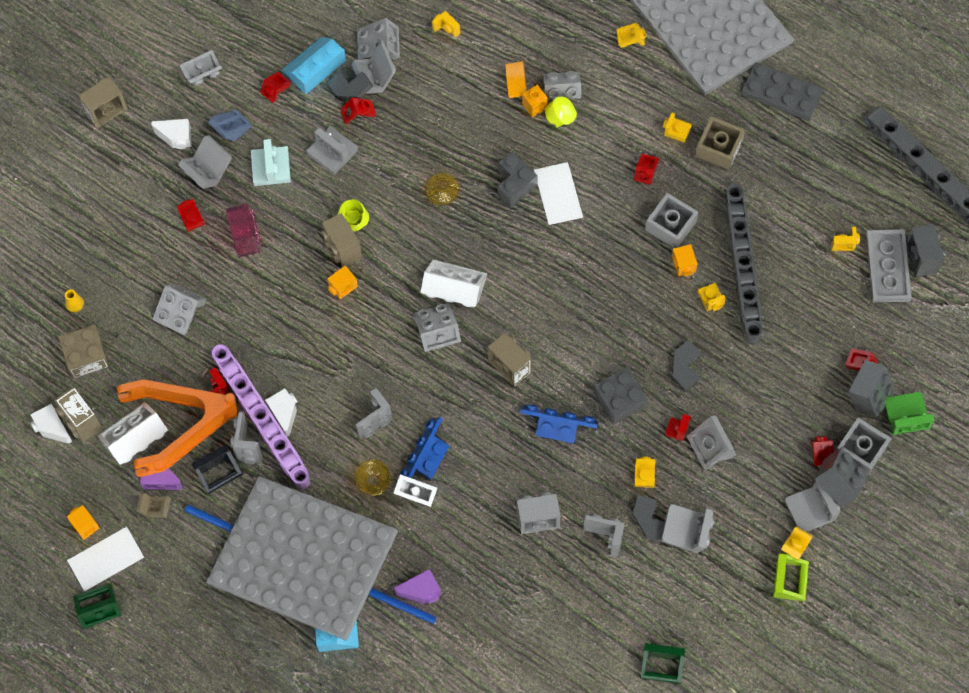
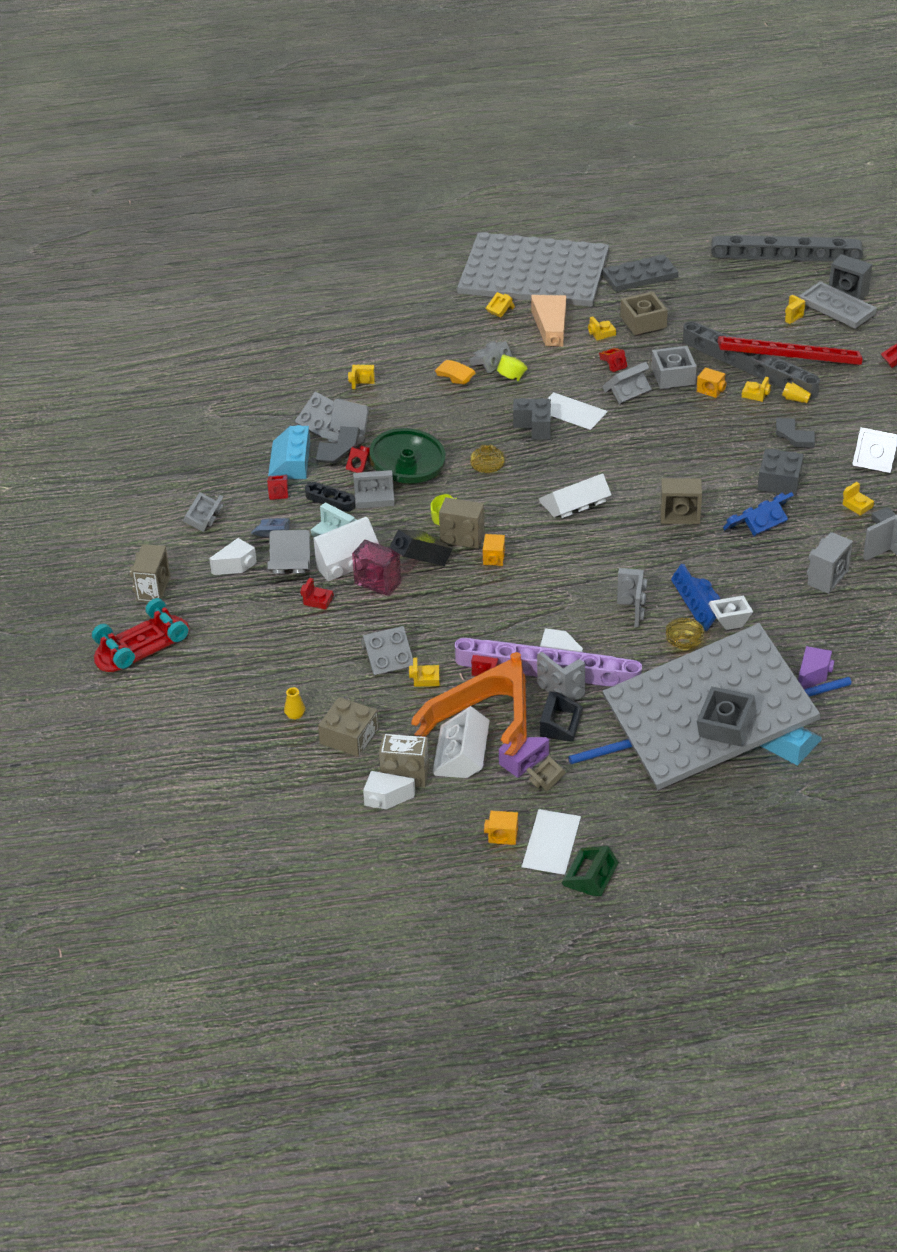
camera: 45 degrees left, 25 degrees down
(47, 154) = (139, 641): none -> red piece
(179, 349) = (424, 675): none -> yellow bracket
(237, 190) = (336, 547): none -> white slope
(279, 583) = (726, 716): none -> dark grey brick
(283, 239) = (421, 546): none -> black slope
(299, 121) = (341, 500): none -> black beam
(382, 139) = (409, 454): none -> dark green dish
(437, 327) = (604, 522): light grey bracket -> none
(534, 100) = (485, 372): light orange brick -> none
(620, 207) = (629, 383): none -> light grey bracket
(650, 84) = (550, 317): none -> light nougat slope
(677, 428) = (845, 459): red bracket -> none
(734, 328) = (796, 393): none -> yellow cone
(778, 284) = (789, 350): none -> red tile

